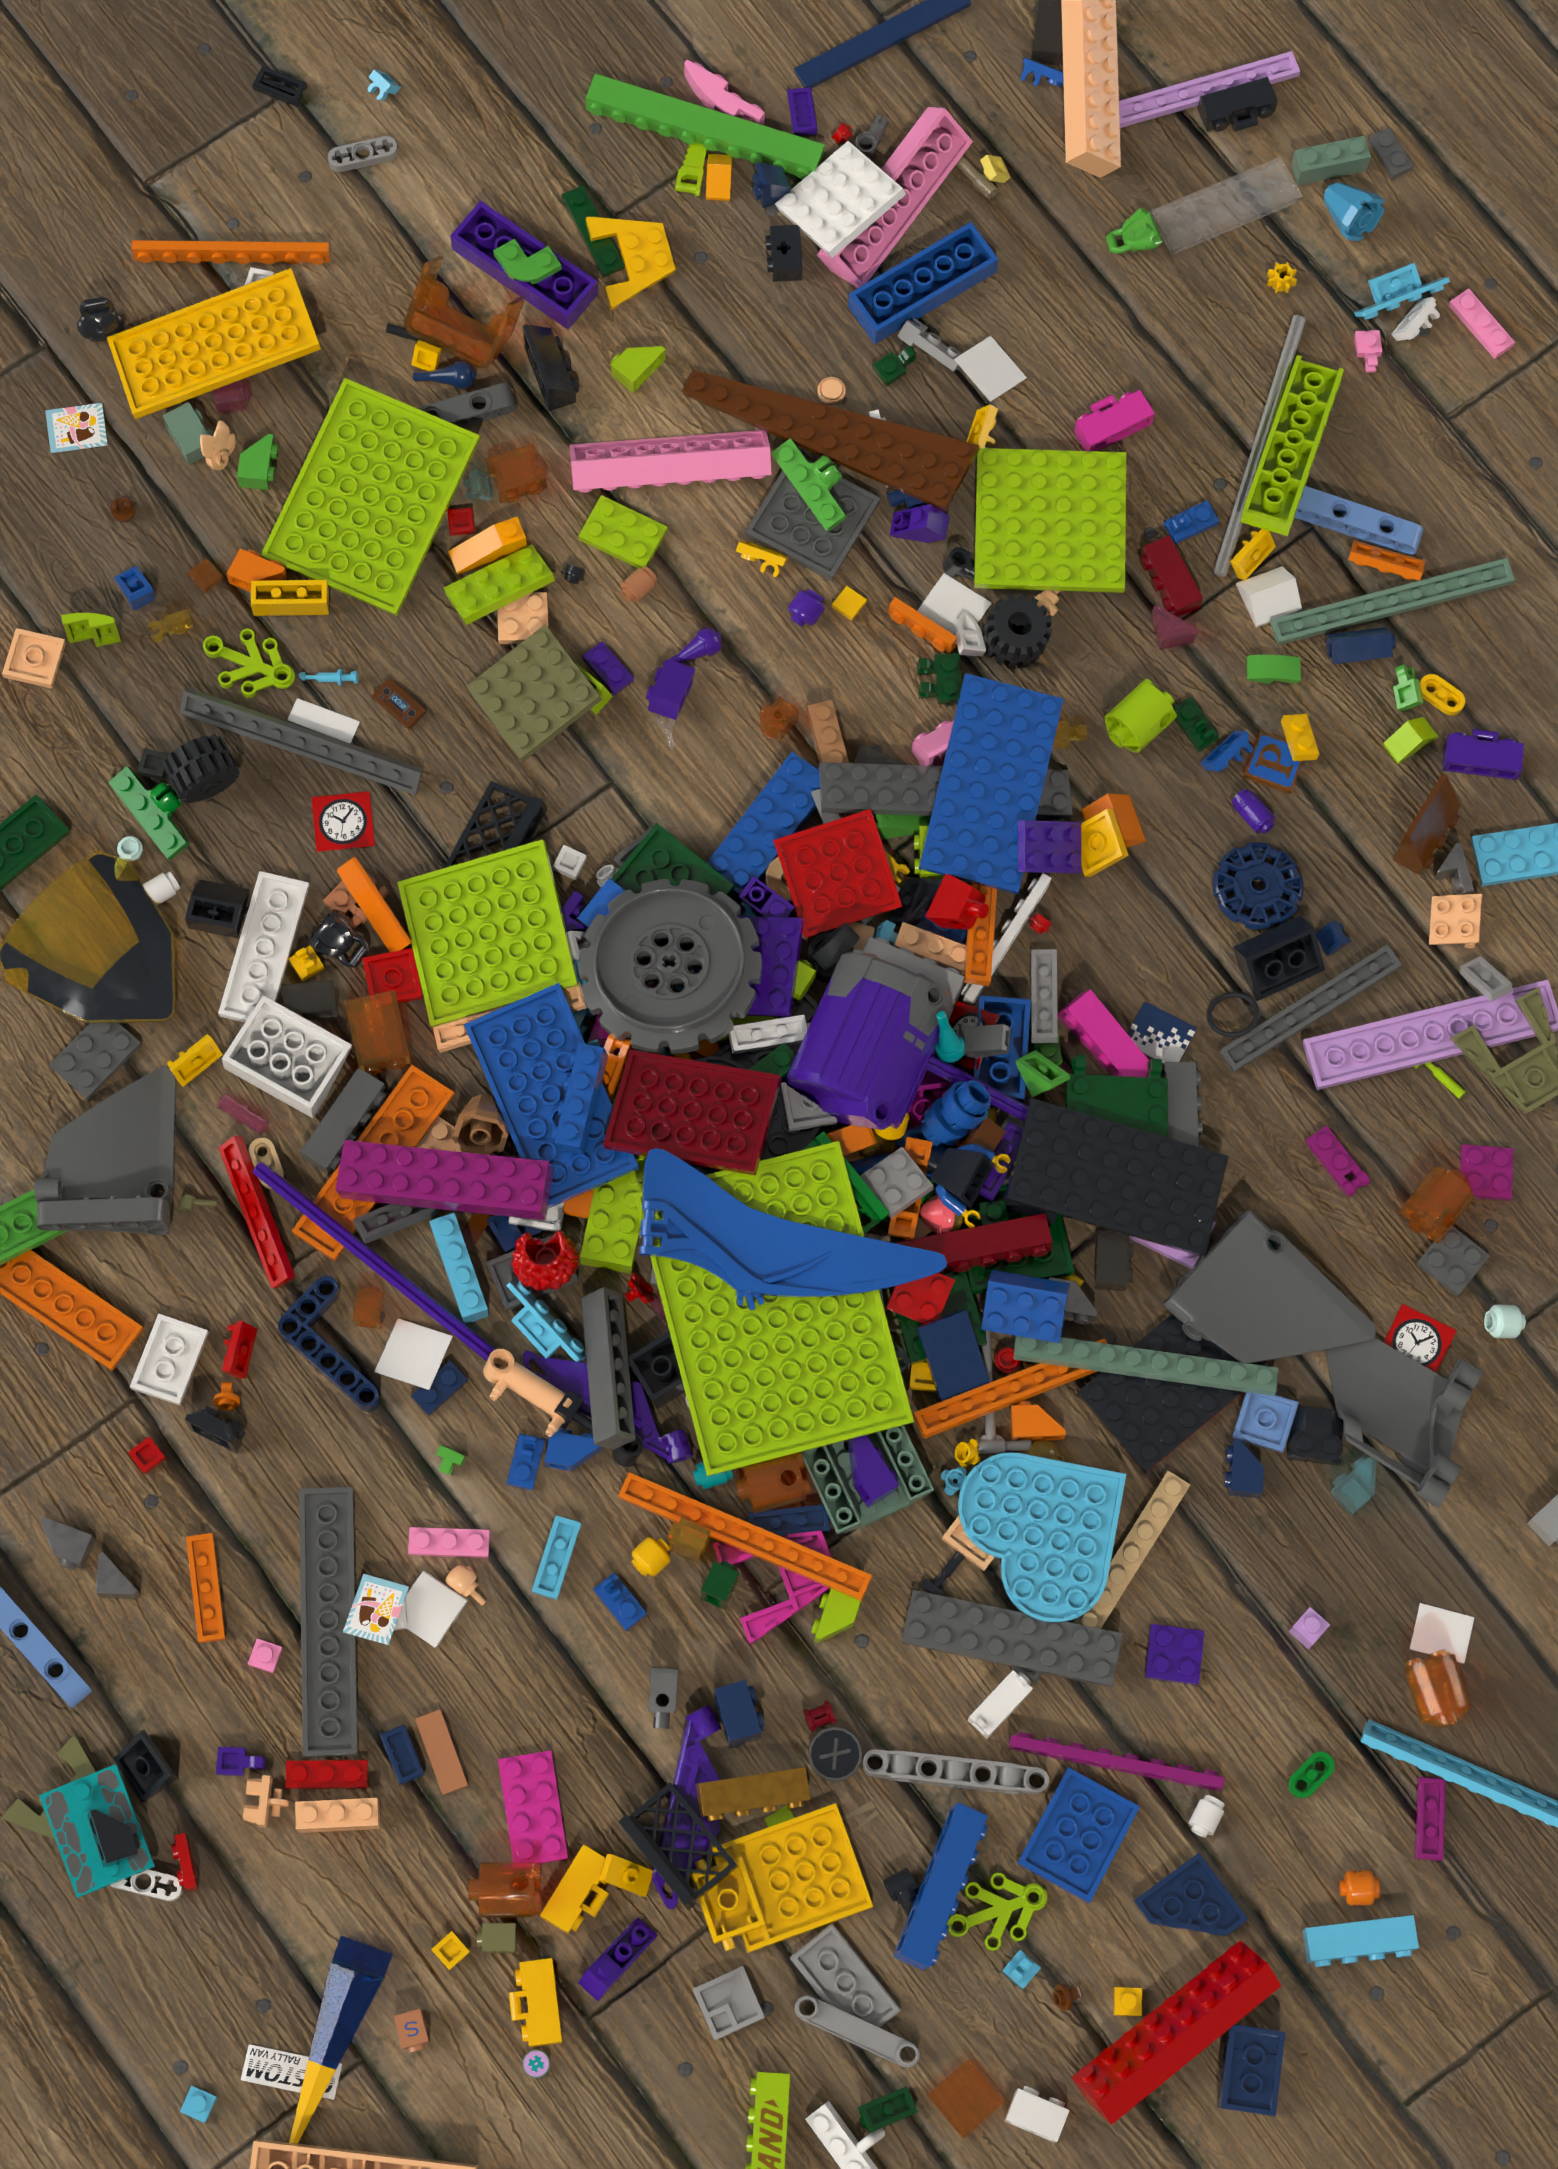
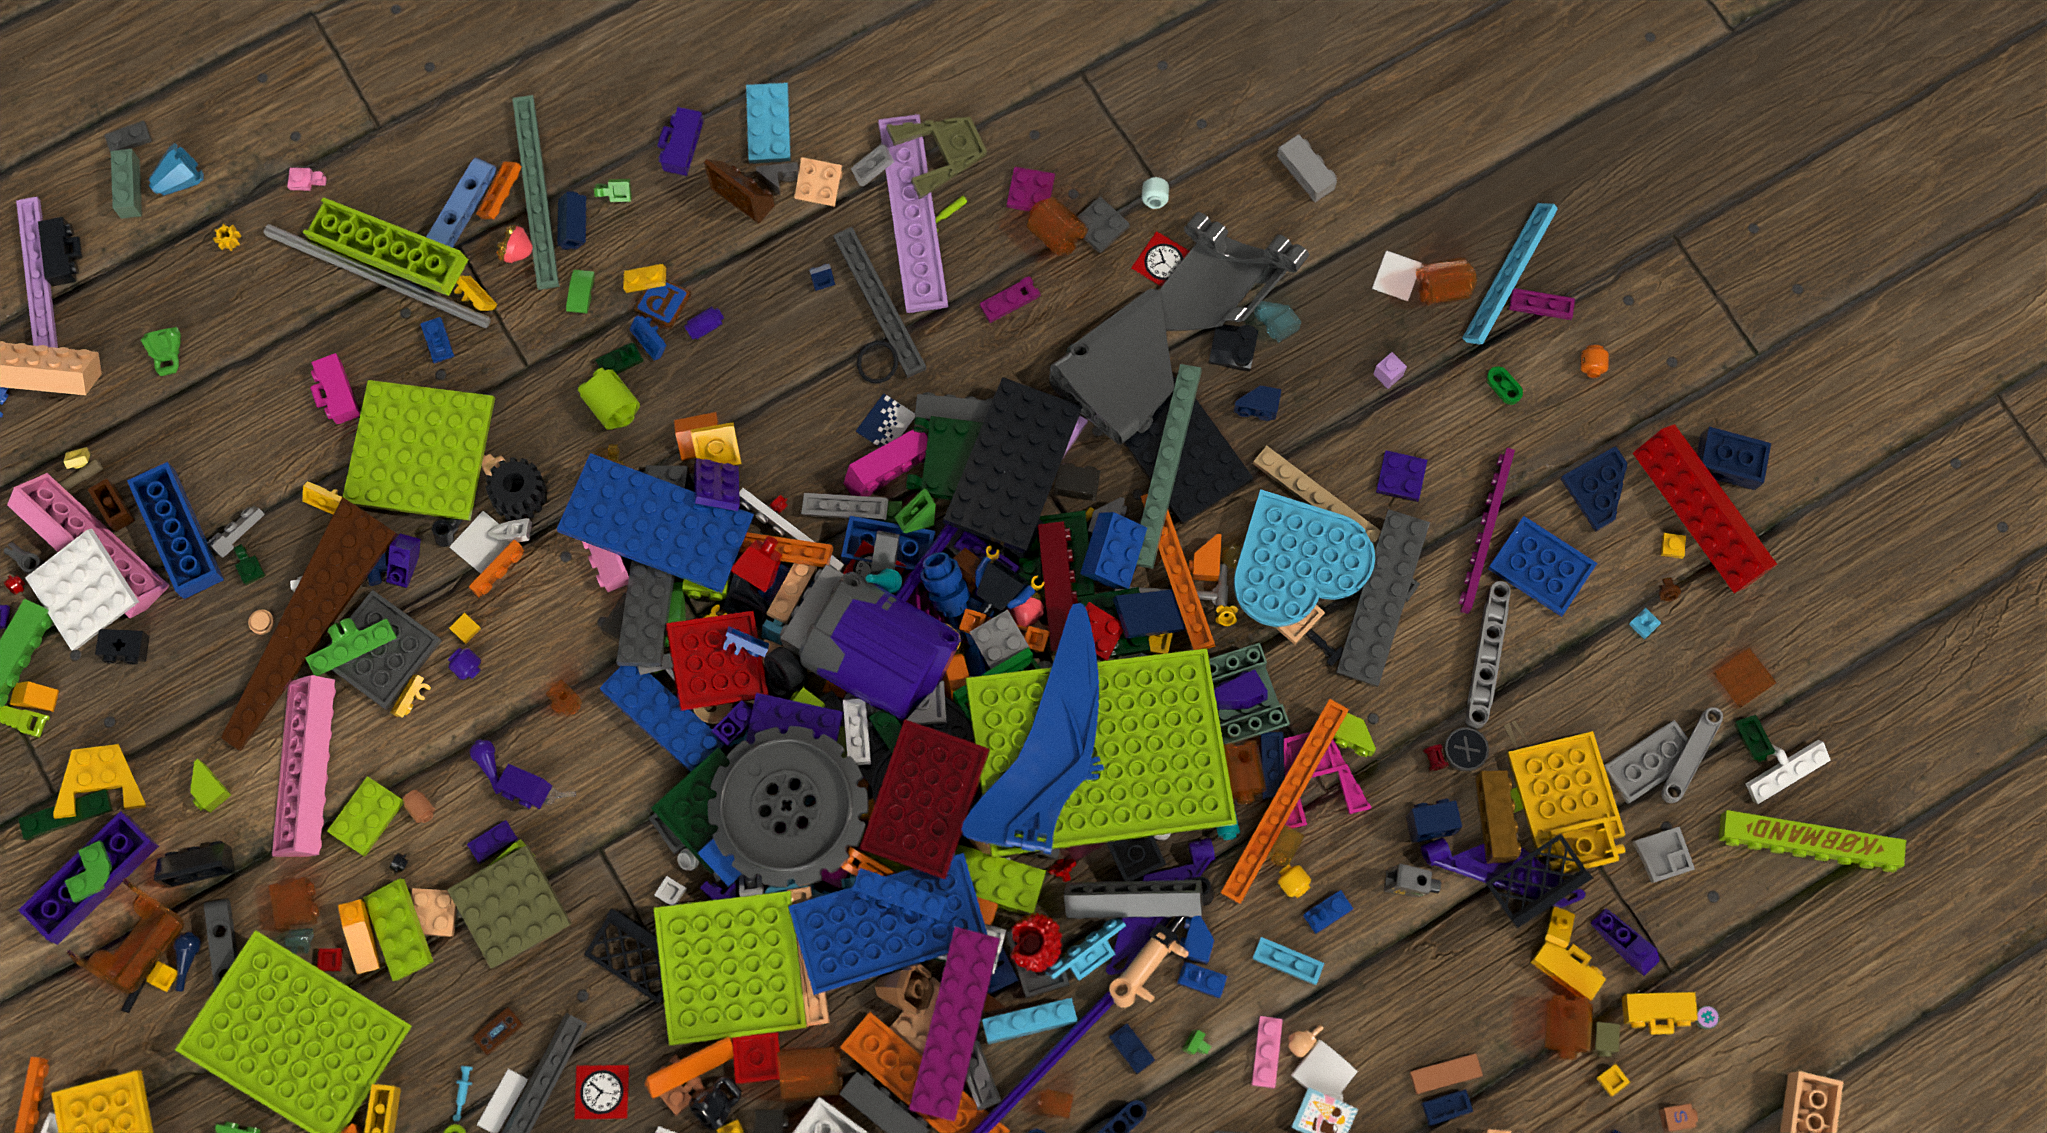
camera: 80 degrees left, 0 degrees up
(413, 1354) = (1100, 1068): white sticker -> none
(533, 1808) = (1497, 1001): dark pink plate -> none
(719, 1584) = (1324, 824): dark green brick -> none
(769, 184) = (53, 651): dark blue slope -> none
(826, 733) = (588, 658): medium nougat brick -> none
(861, 903) = (754, 645): none -> plate
(902, 1889) = (1580, 707): black pin -> none
(940, 1887) = (1582, 675): blue brick -> none
(943, 212) = (111, 505): none -> reddish brown brick
(947, 678) = (547, 553): dark green plate -> none
(948, 1476) = (1248, 622): medium azure plate -> none
(990, 368) = (267, 484): white sticker -> none
(1000, 1703) = (1434, 613): white brick -> none
(1001, 1908) = (1598, 633): lime plant -> none
(1004, 1360) = (1150, 576): red plate -> none
(1037, 2114) = (1760, 623): white brick -> none
(1170, 577) = (485, 361): dark red brick -> none
(1171, 630) = (532, 368): clear pink slope -> none
(1206, 1816) = (1533, 466): white brick -> none
(1226, 205) = (149, 273): clear plate -> none
(1253, 899) = (768, 340): dark blue plate -> none
(1266, 1421) = (1219, 381): medium blue plate -> none
(1270, 595) = (513, 285): white slope -> none
(1279, 957) = (833, 319): black slope -> none
(1316, 586) = (515, 245): none -> coral hair
(1360, 1939) = (1634, 366): medium azure brick -> none
(1396, 287) = (254, 147): medium azure bracket -> none
(1410, 739) = (658, 195): lime slope -> none
(1415, 319) = (286, 137): white plate -> none
(1443, 693) = (621, 164): yellow plate -> none
(1481, 323) = (298, 89): bright pink plate -> none

